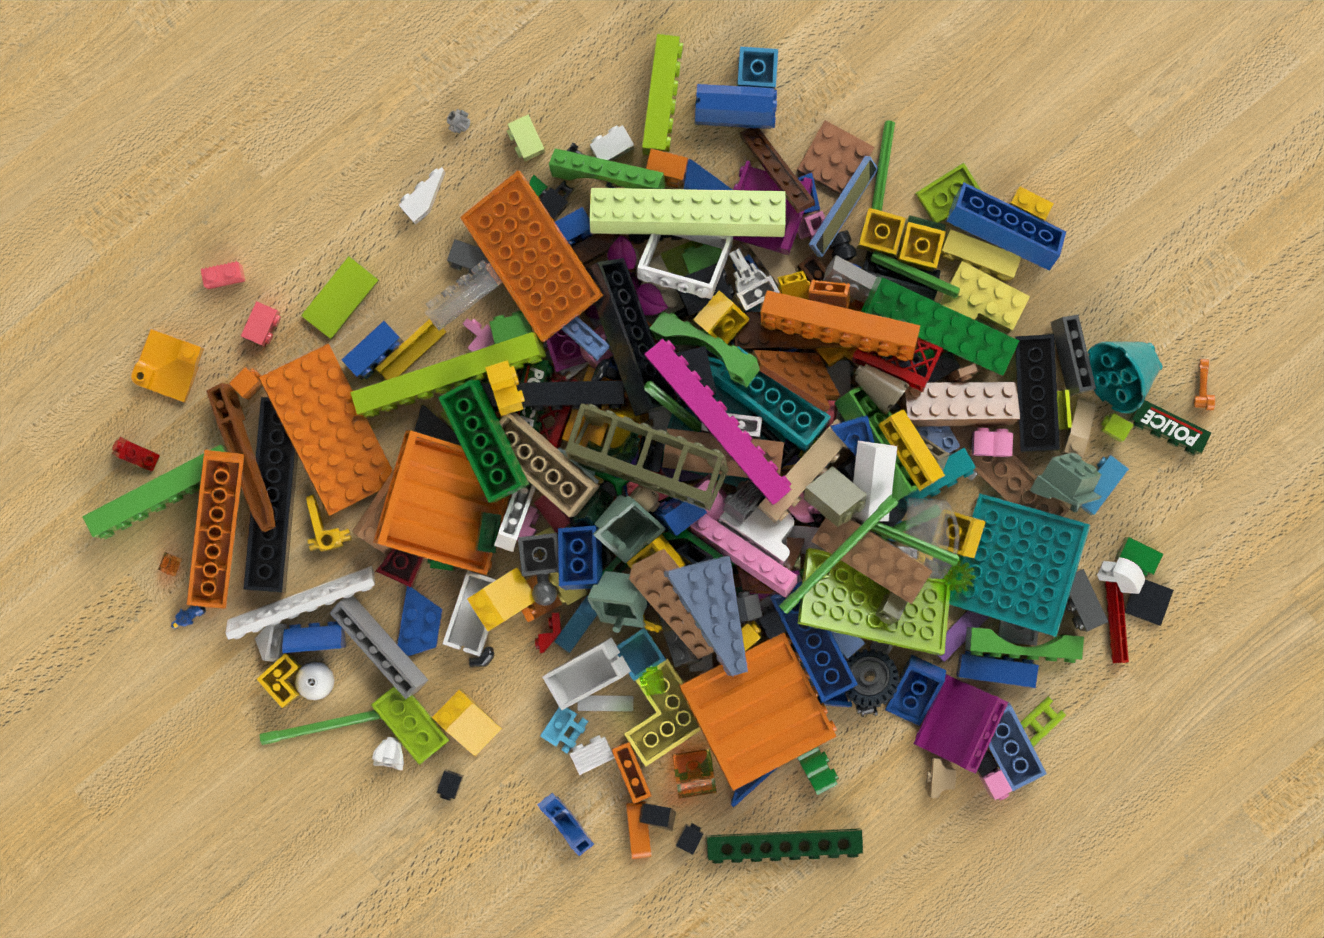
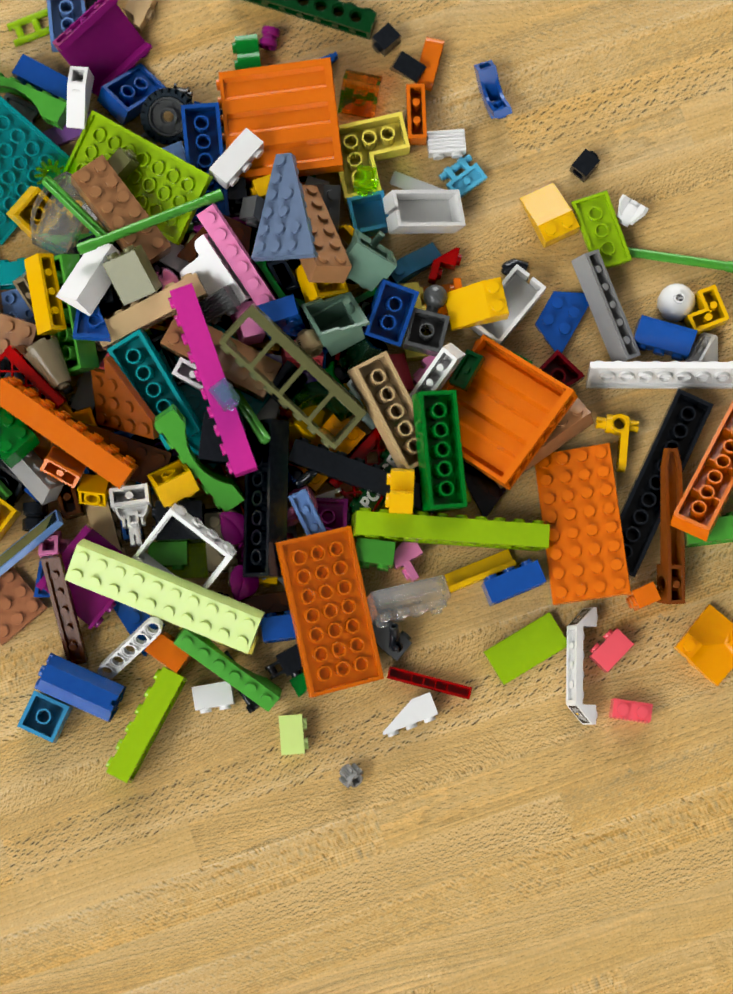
camera: 155 degrees left, 5 degrees down
(295, 343) = (574, 666): none -> white slope
(418, 232) = (429, 682): none -> red piece
(463, 256) = (394, 640): none -> black arm
(699, 407) = (224, 395): none -> clear light blue brick
(702, 163) = (133, 641): none -> white beam
(782, 651) = (237, 159): none -> white brick
(804, 797) = (269, 38): none -> magenta wheel
(961, 660) = (78, 96): none -> white slope

